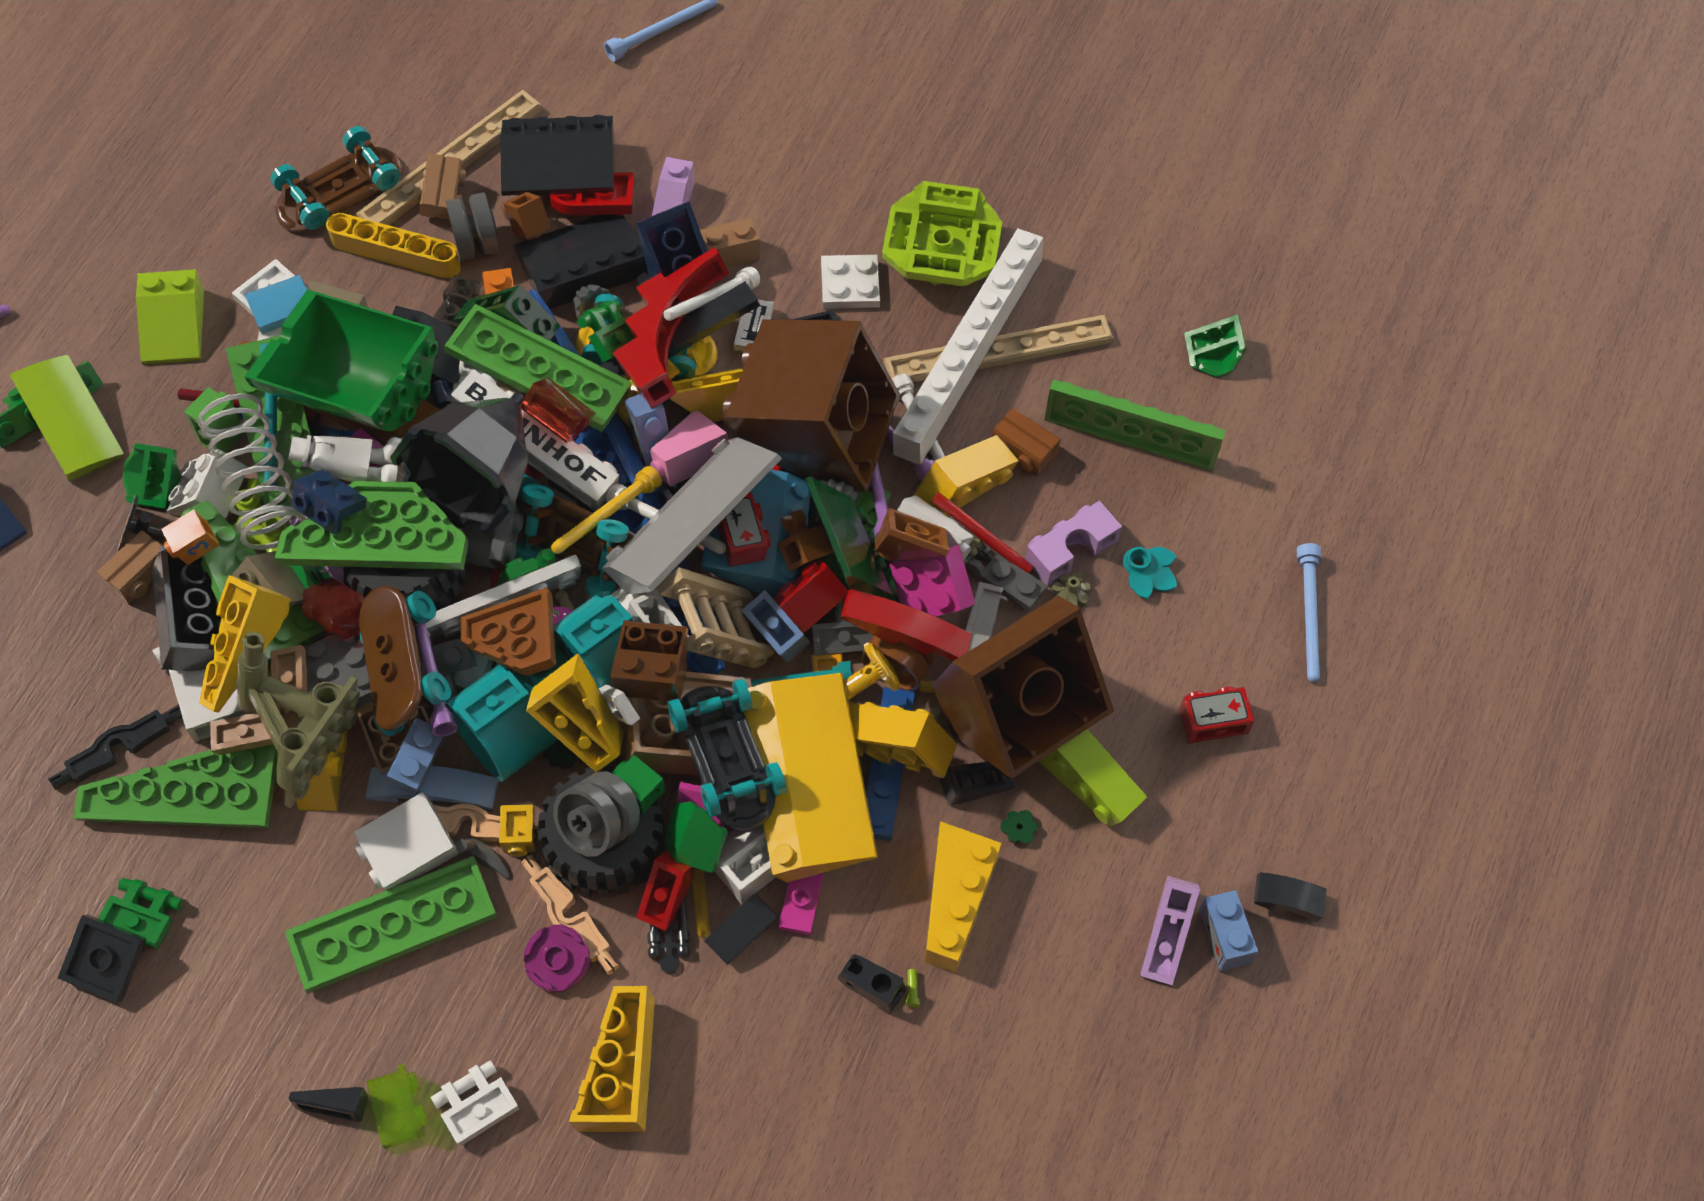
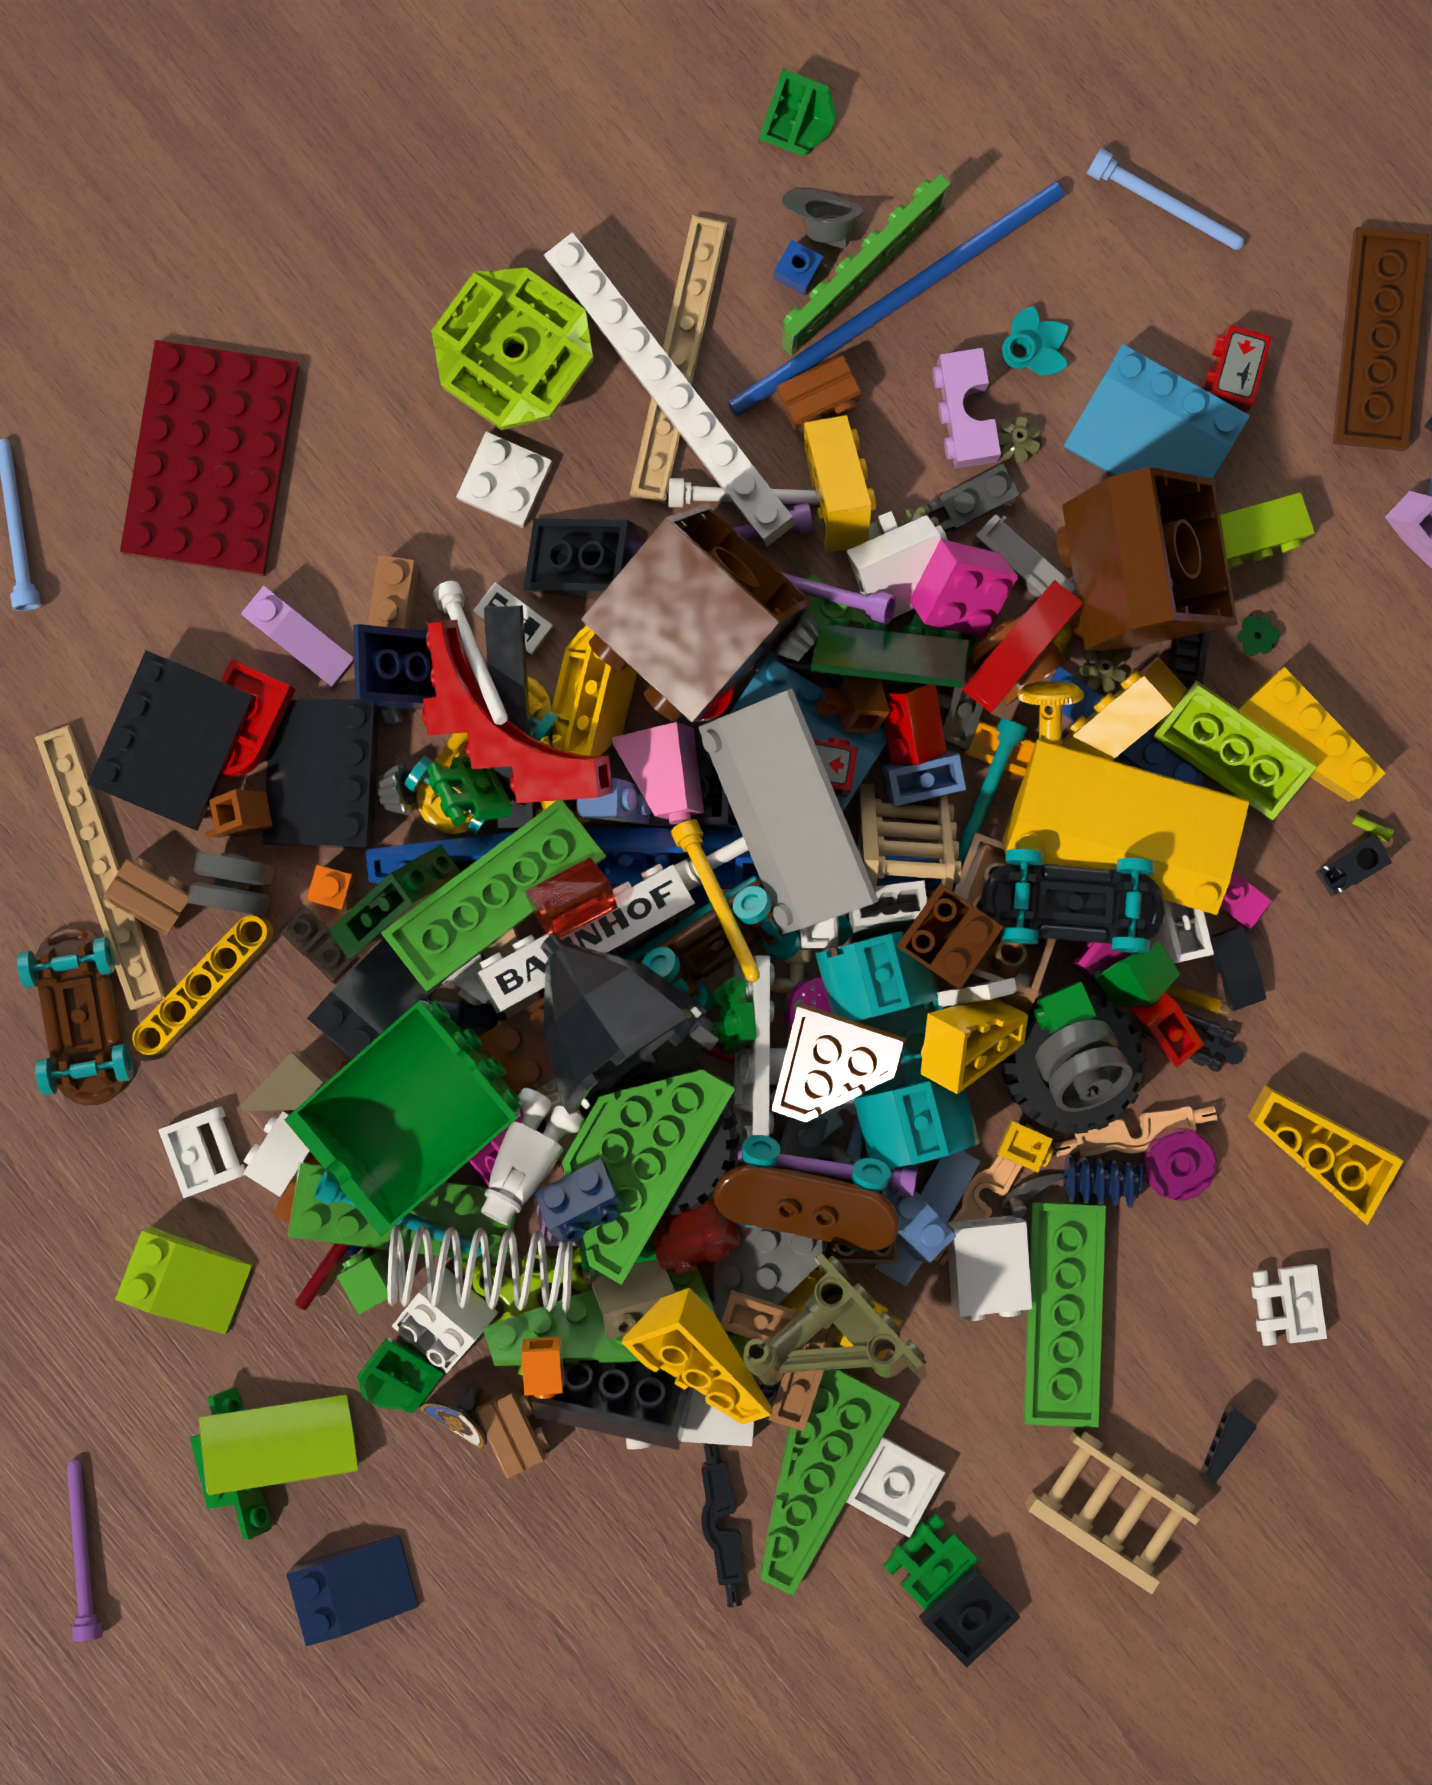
camera: 60 degrees left, 25 degrees up
(194, 857) = (895, 1486): none -> white plate
(211, 1013) = (1110, 1547): none -> tan fence
(275, 302) = (234, 1149): dark azure slope -> none
(396, 1107) = (1257, 1381): clear neon green bracket -> none
(512, 901) = (1102, 1180): none -> dark blue piece
(767, 112) = (209, 458): none -> dark red plate
(910, 538) = (920, 586): dark orange slope -> none
(914, 840) = (1234, 750): none -> lime slope
(981, 532) = (916, 502): red bar -> none
(1110, 385) = (798, 278): none -> blue plate
(1137, 471) = (897, 298): none -> blue piece
(1143, 677) = (1155, 420): none -> dark azure slope
(1154, 388) = (824, 215): none -> dark grey piece
(1304, 810) = (1380, 339): none -> reddish brown plate

